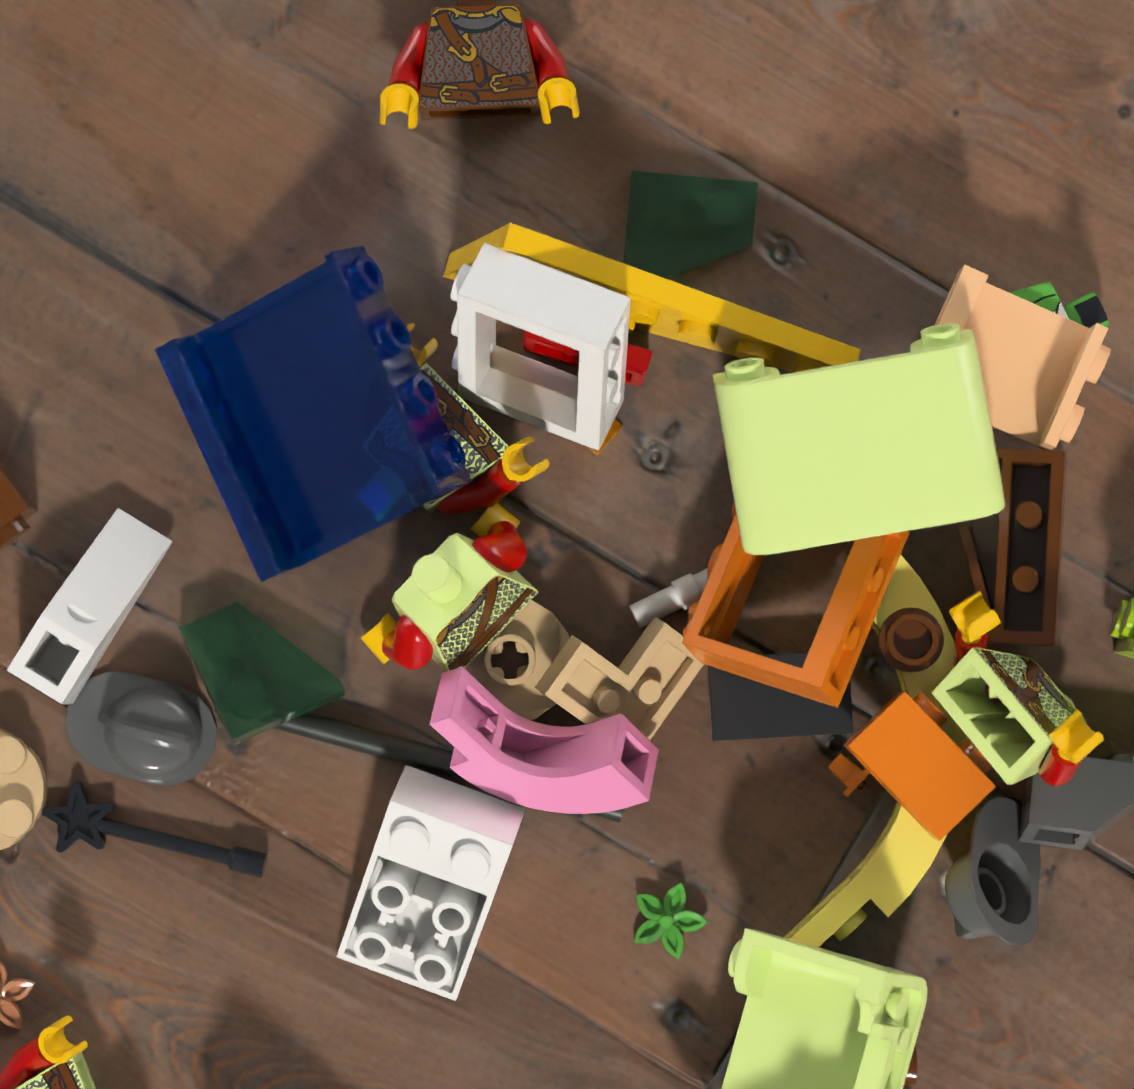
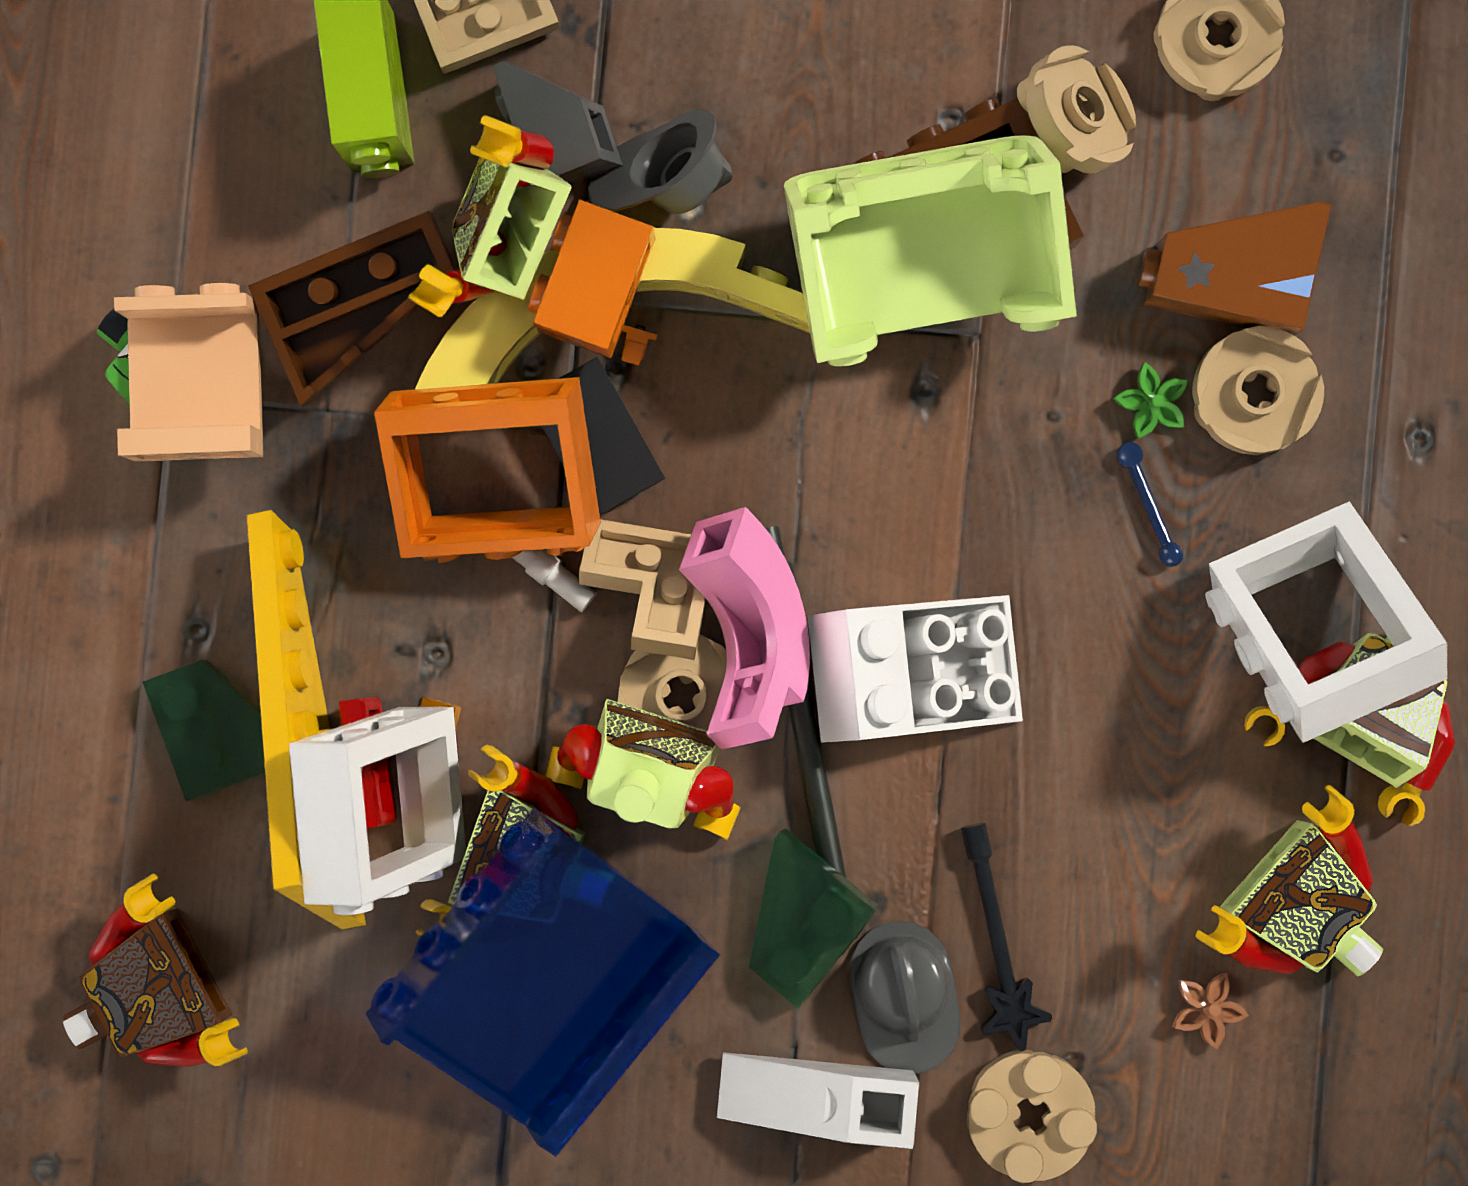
camera: 115 degrees left, 0 degrees up
(667, 919) = (844, 442): bright green plant -> none
(859, 445) = (327, 470): yellowish green windscreen -> none
(911, 639) = (486, 342): reddish brown plate -> none

